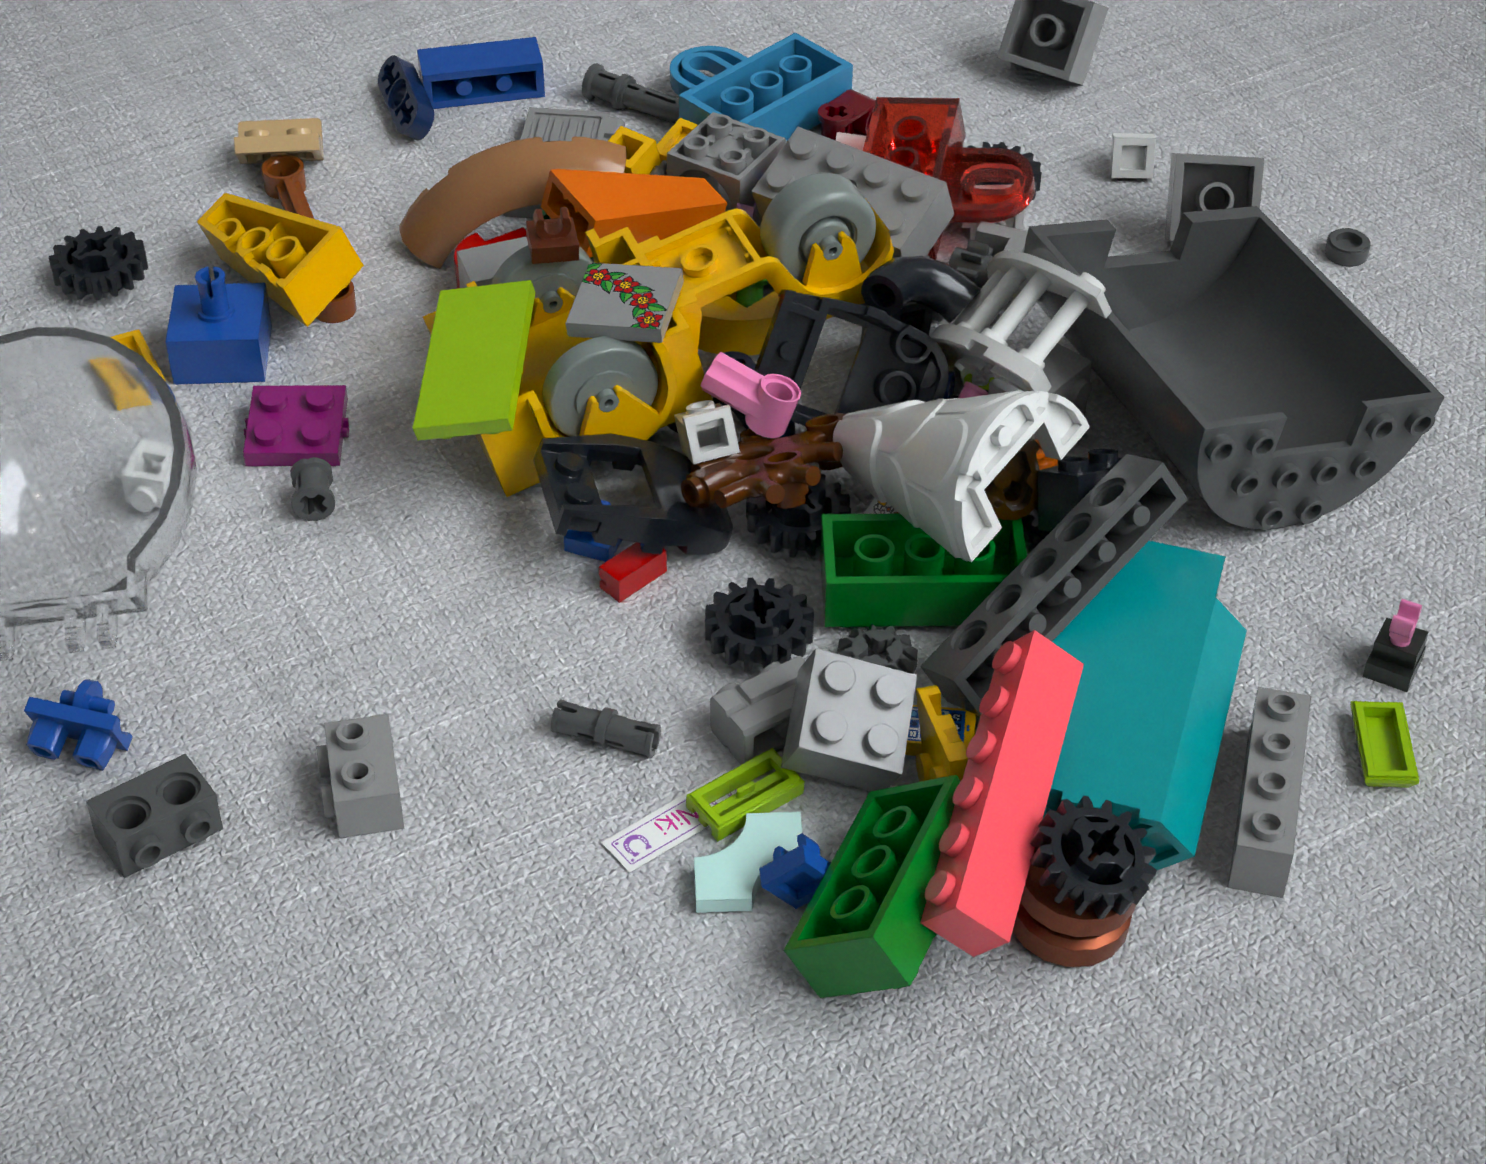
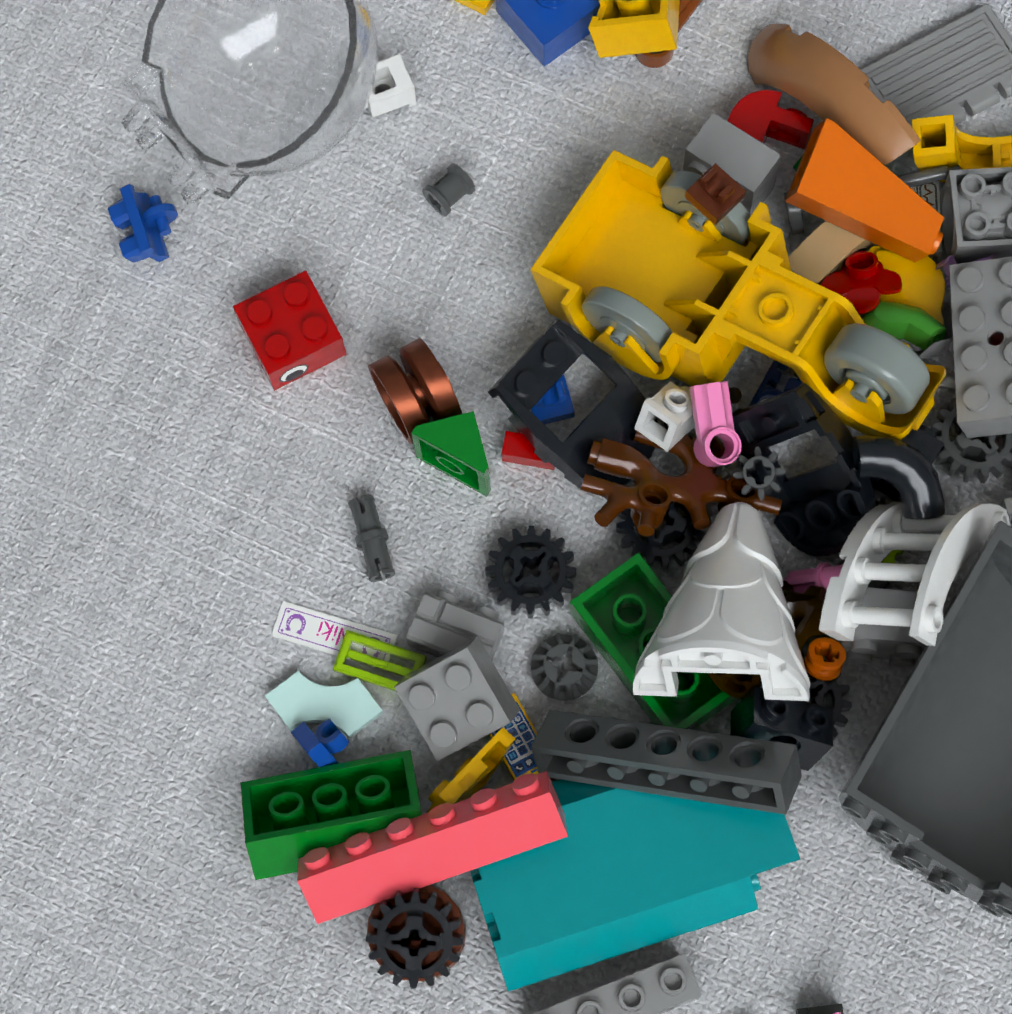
camera: 60 degrees right, 30 degrees up
(155, 815) = (111, 320): dark grey brick -> none
(295, 424) = (506, 127): magenta plate -> none
(323, 666) = (290, 330): none -> red brick
(362, 775) = (221, 422): light grey brick -> none
(475, 361) = (575, 228): lime tile -> none
(495, 594) = (421, 387): none -> copper wheel
(592, 597) = (455, 449): none -> green slope
(625, 302) = (685, 294): light grey tile -> none
(827, 388) = (750, 466): none -> dark grey gear

